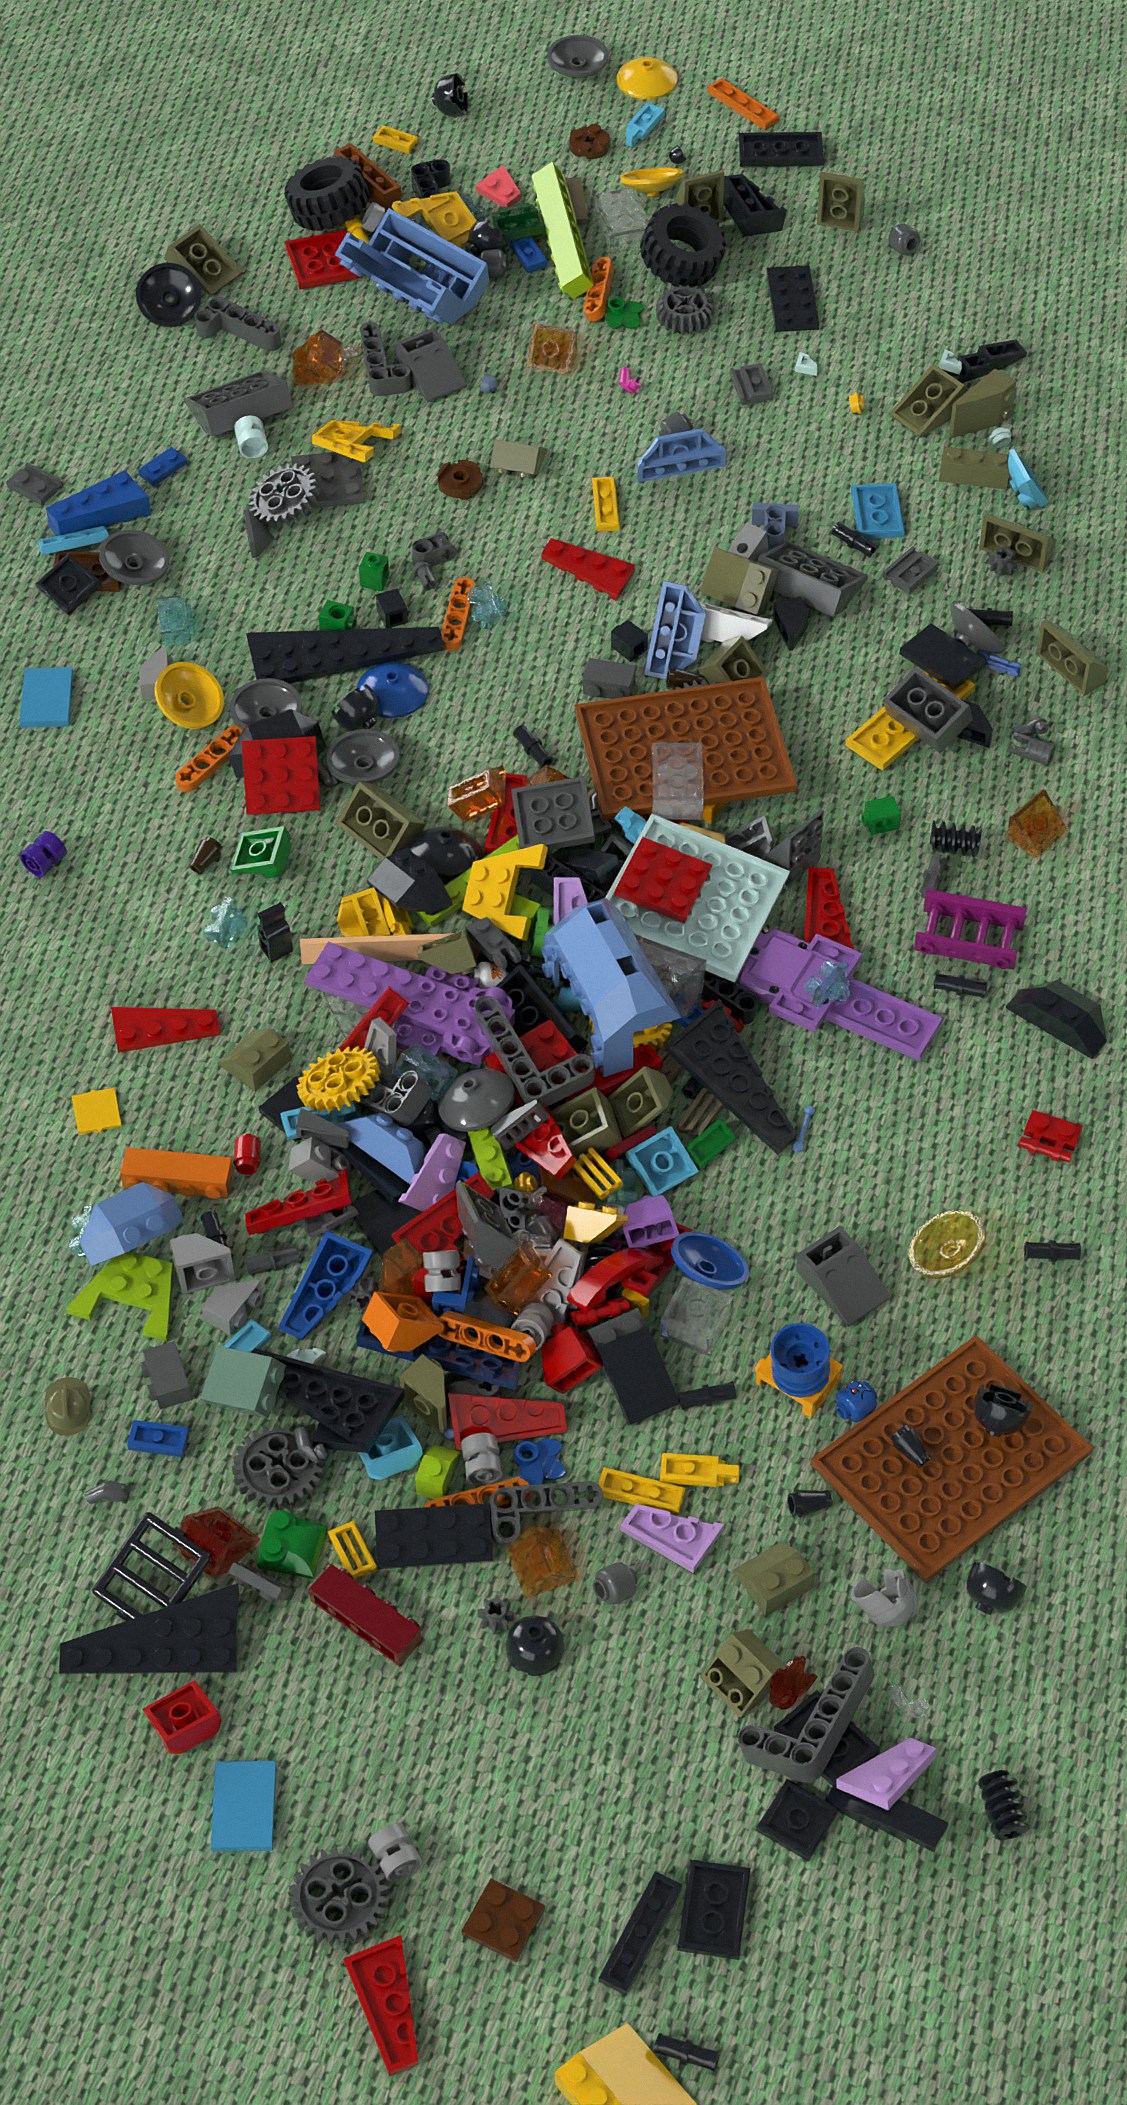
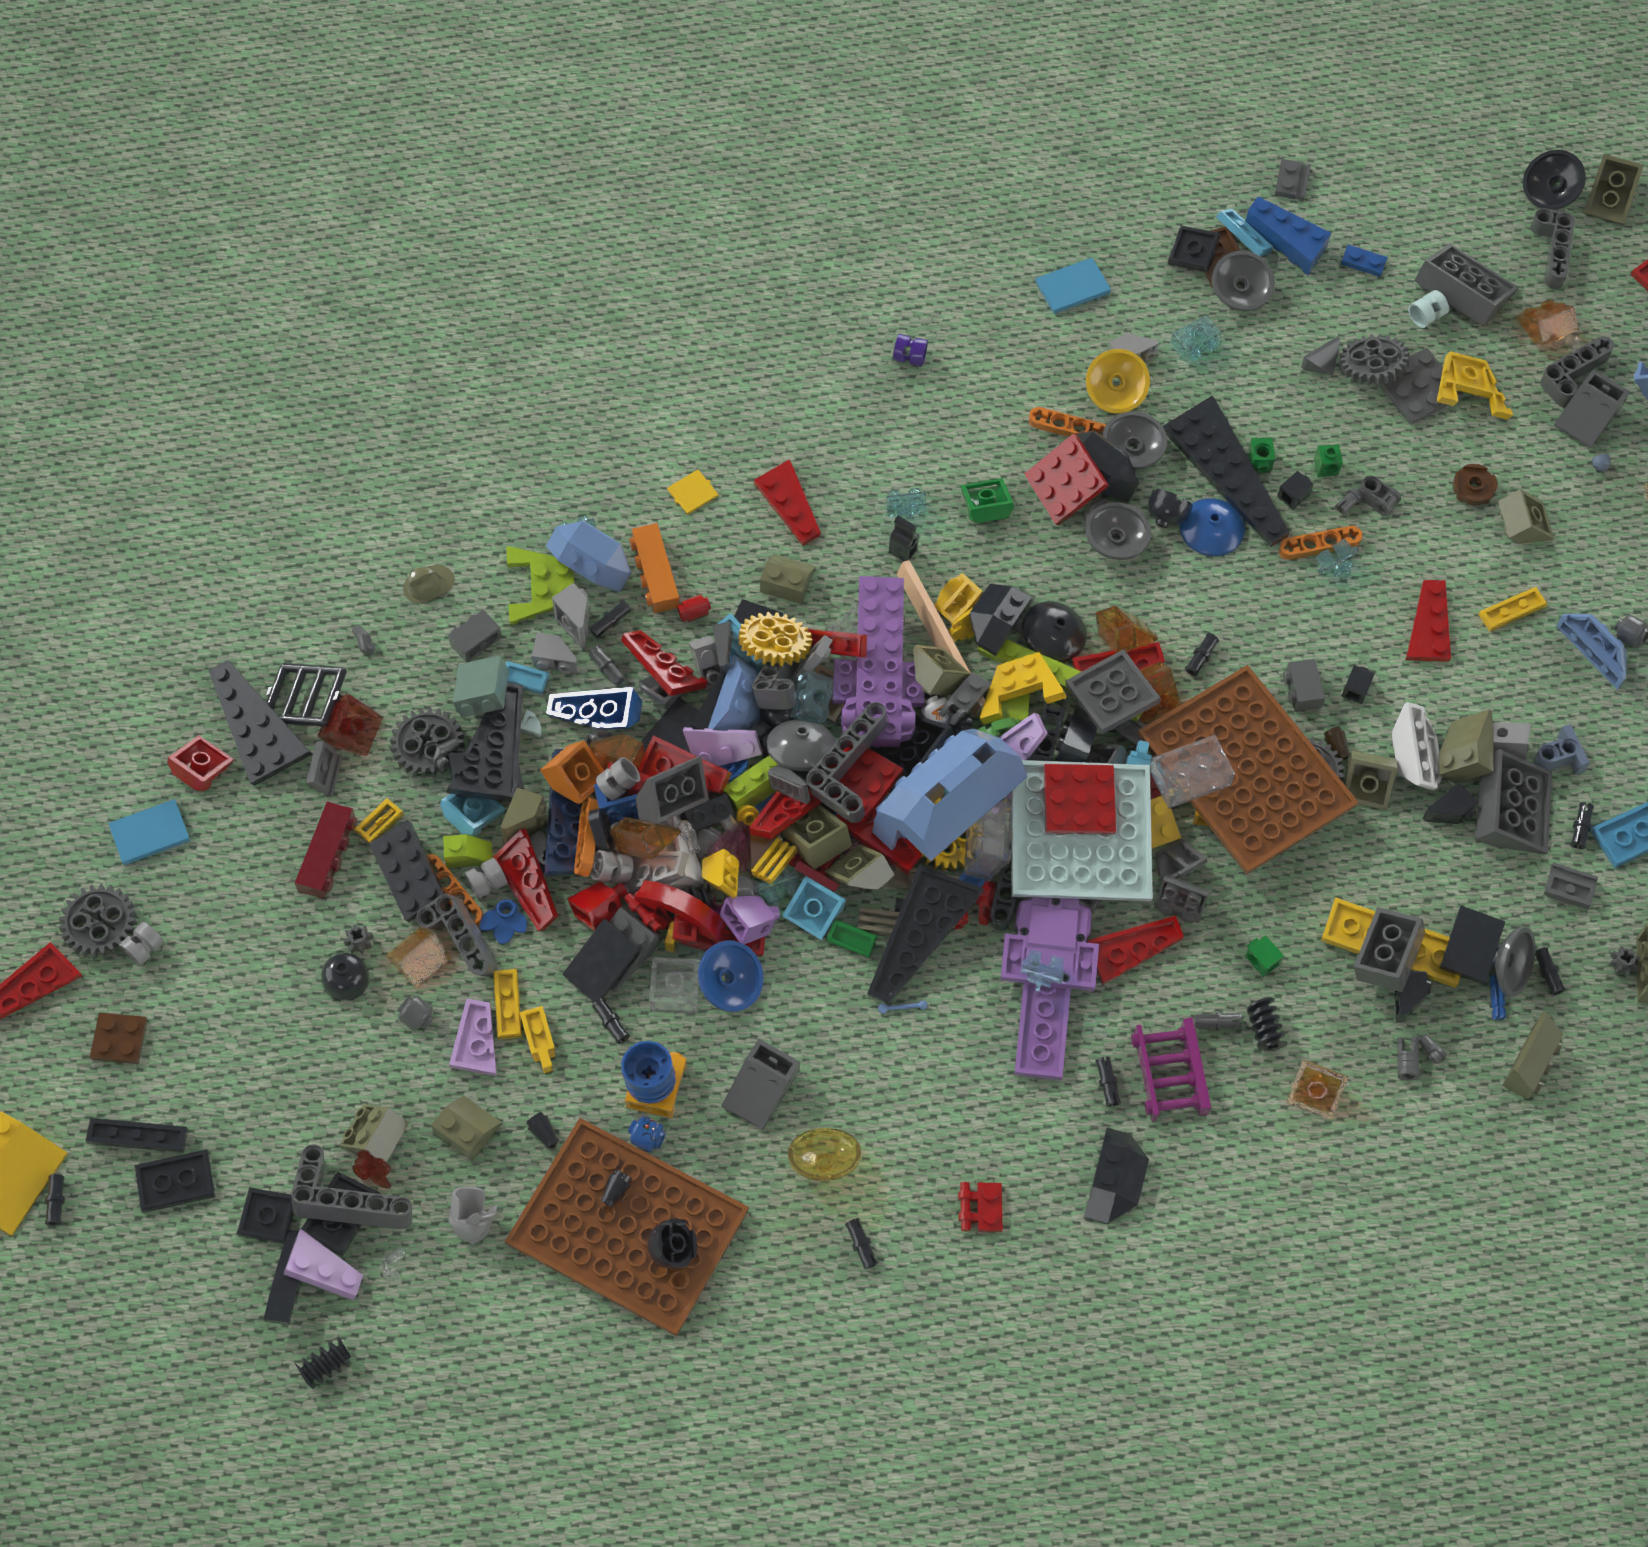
camera: 65 degrees right, 10 degrees up
(158, 1438) = (420, 653): blue plate -> none
(206, 853) = (967, 461): dark brown cone -> none
(291, 1545) = (367, 778): green slope -> none
(378, 820) = (1063, 570): olive slope -> none
(675, 630) = (1376, 713): medium blue wedge -> none
(993, 1589) = (512, 1293): black cylinder -> none

